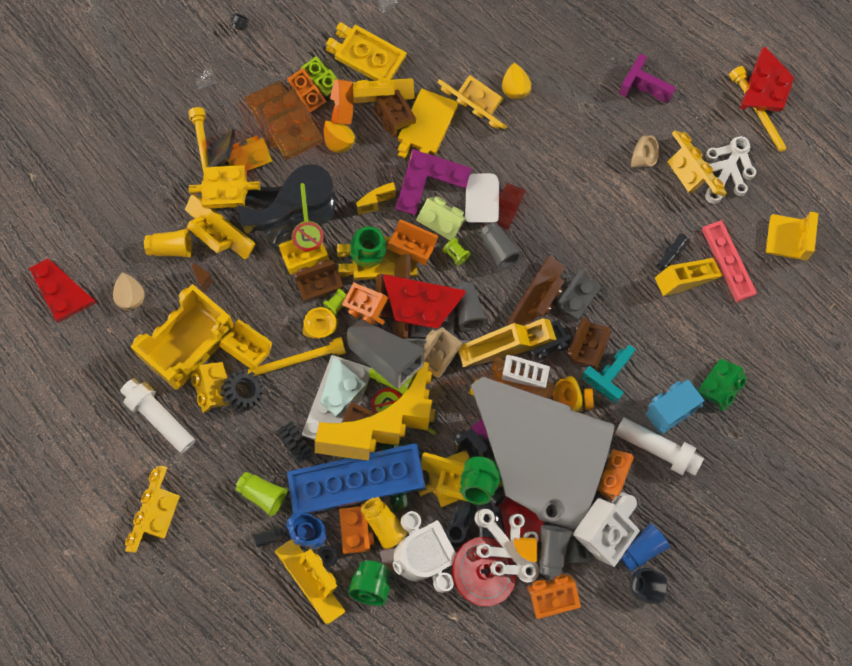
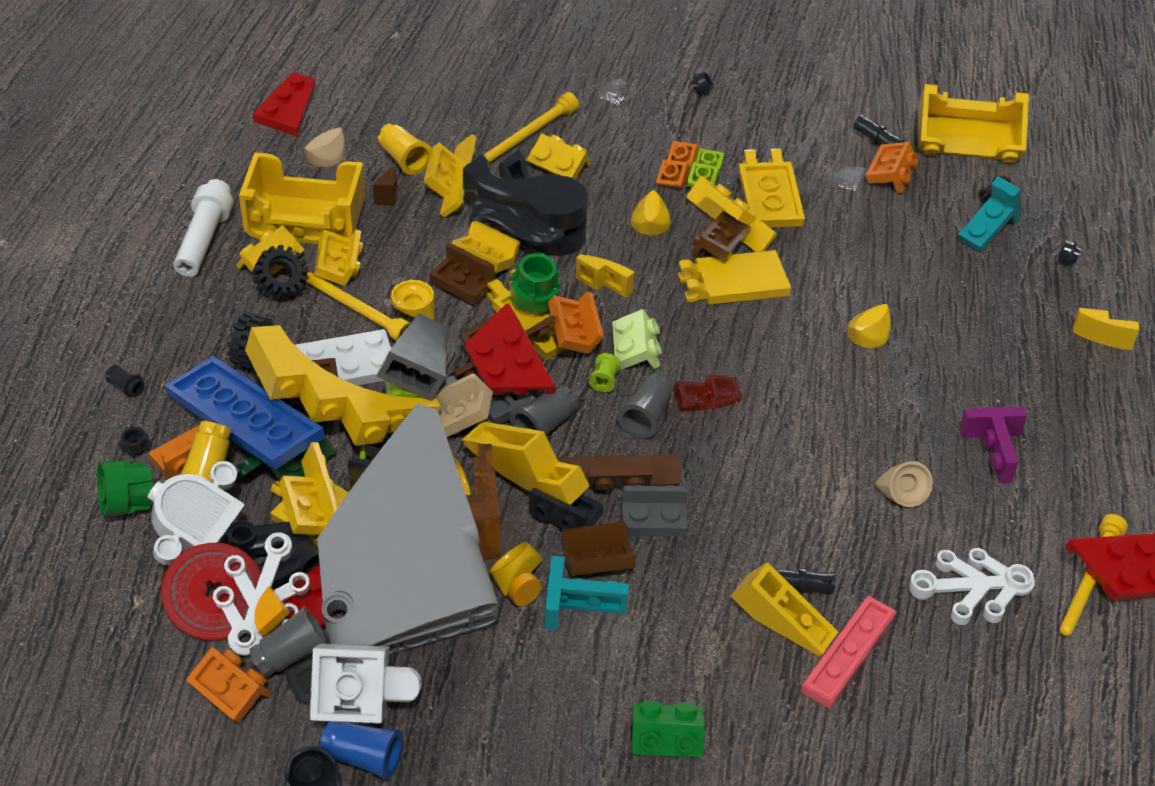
camera: 55 degrees right, 25 degrees down
(155, 511) = (92, 278): yellow bracket -> none
(222, 149) = (535, 131): black piece -> none
(224, 186) = (501, 147): yellow plate -> none
(261, 492) = (172, 349): lime plant -> none
(284, 120) = (617, 149): clear orange bracket -> none
(306, 530) = (150, 398): blue hair -> none
(307, 234) = (505, 230): piece -> none
(312, 579) = (93, 441): yellow bracket -> none
(335, 302) = (451, 303): lime bush -> none
(340, 388) = (350, 347): light aqua wing -> none
(344, 99) = (688, 190): orange slope -> none
(365, 303) = (464, 312): orange bracket -> none
(419, 168) = (670, 287): magenta plate -> none
(477, 96) = (812, 300): yellow bracket -> none
(479, 480) = (313, 499): green piece -> none
(482, 198) = (694, 364): white sticker -> none
(498, 497) = (309, 543): black plate -> none
(519, 362) = (486, 453): white slope -> none
(615, 474) = (442, 659): orange bracket -> none
(674, 406) = (582, 674): dark azure brick -> none
(681, 457) = (521, 723): white piece -> none
(691, 167) = (936, 537): yellow bracket -> none
(792, 236) = (951, 700): yellow bracket -> none

